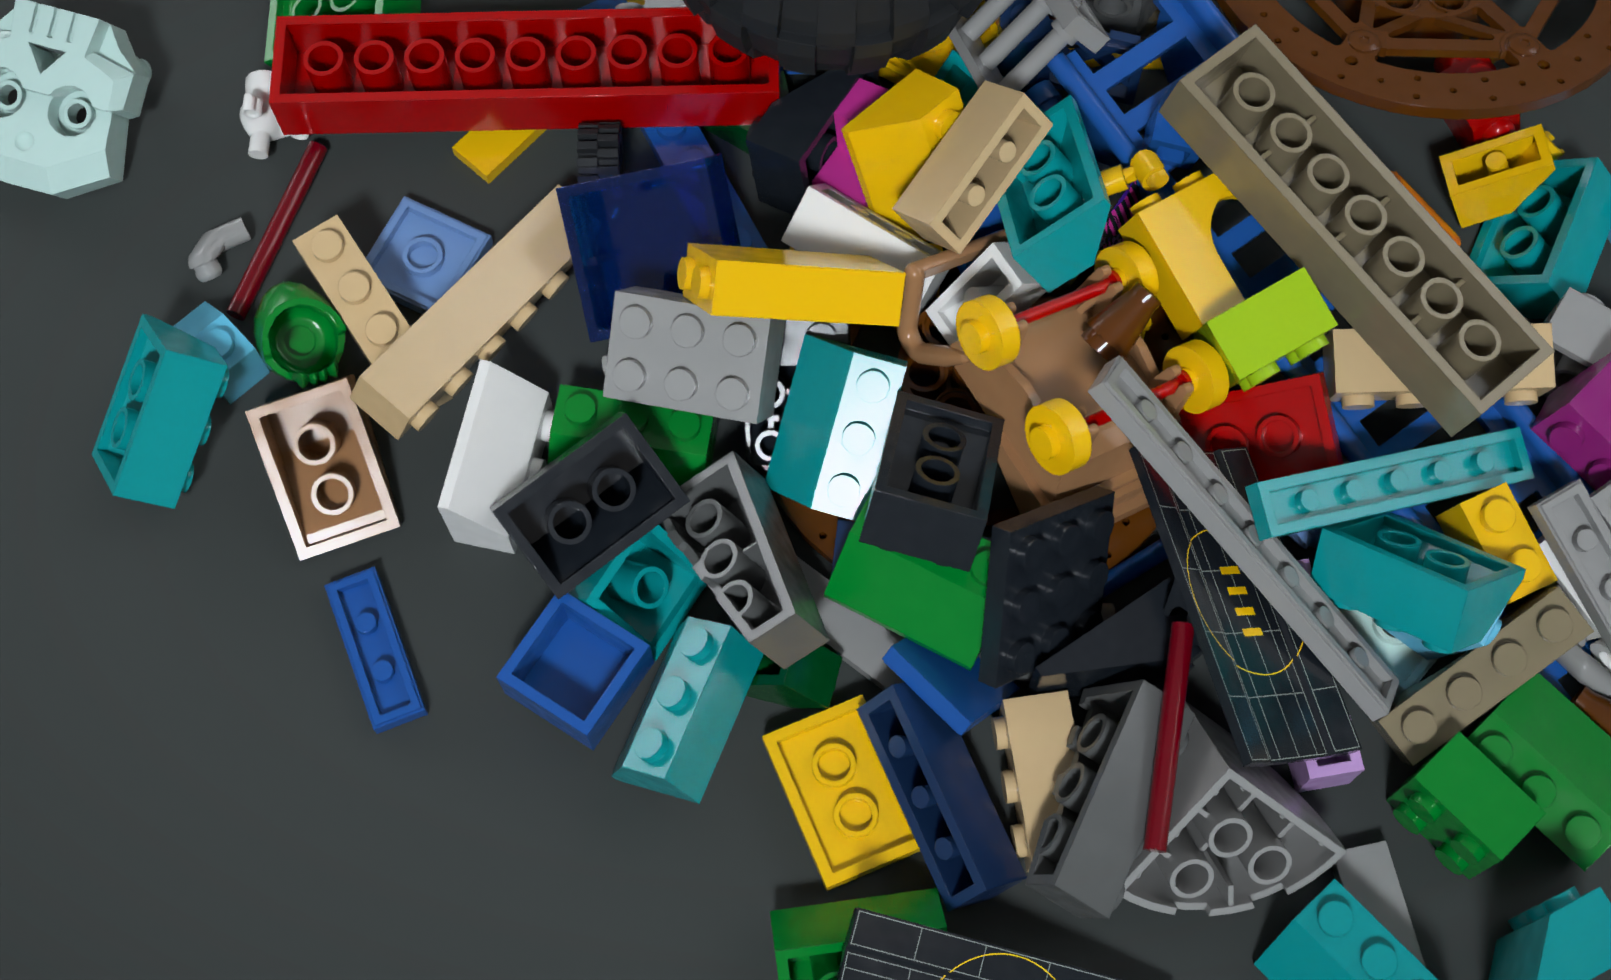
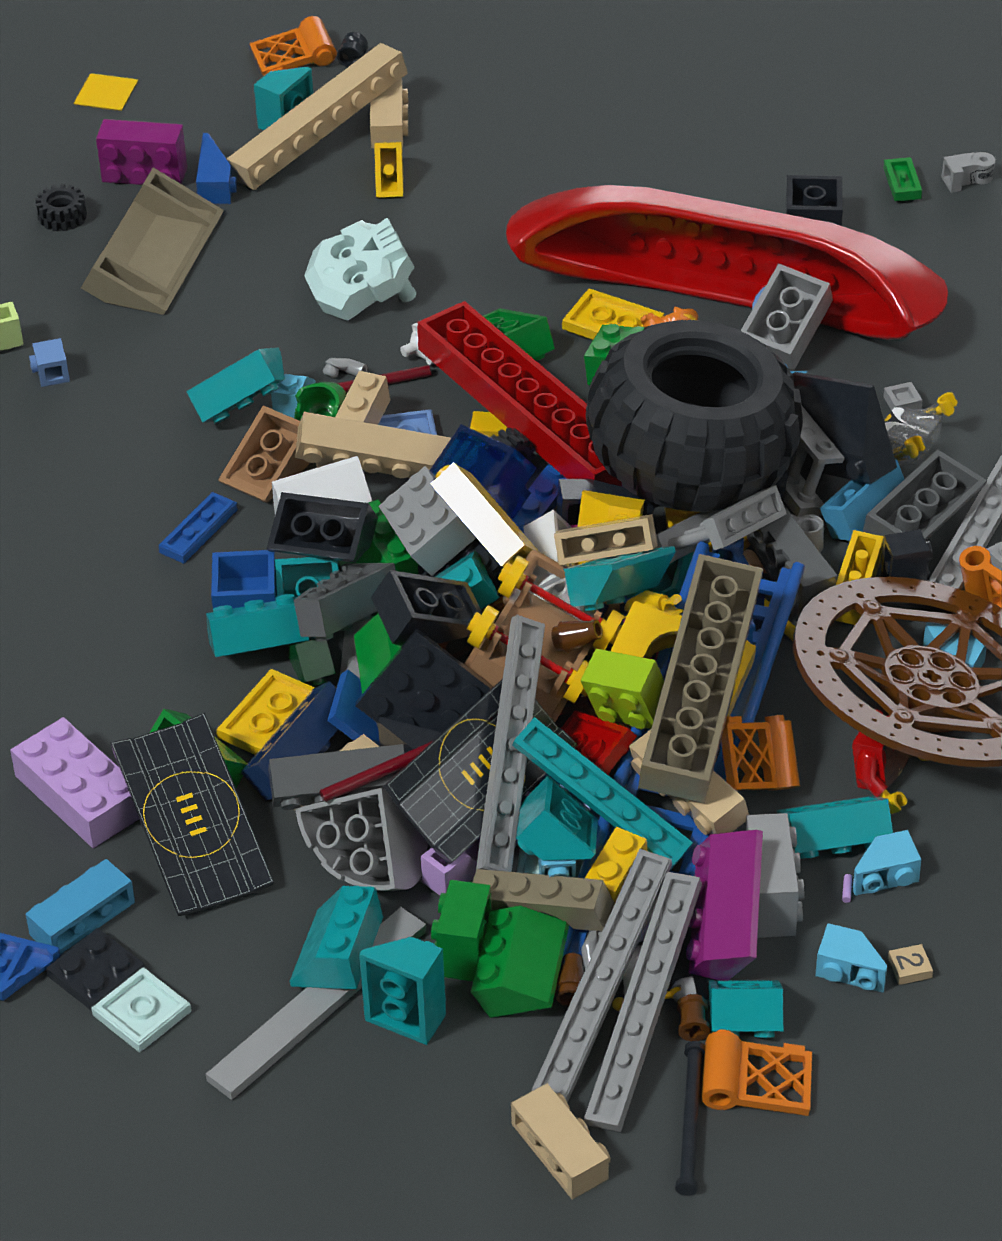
camera: 55 degrees right, 25 degrees down
(1496, 174) = (838, 773): yellow slope -> none

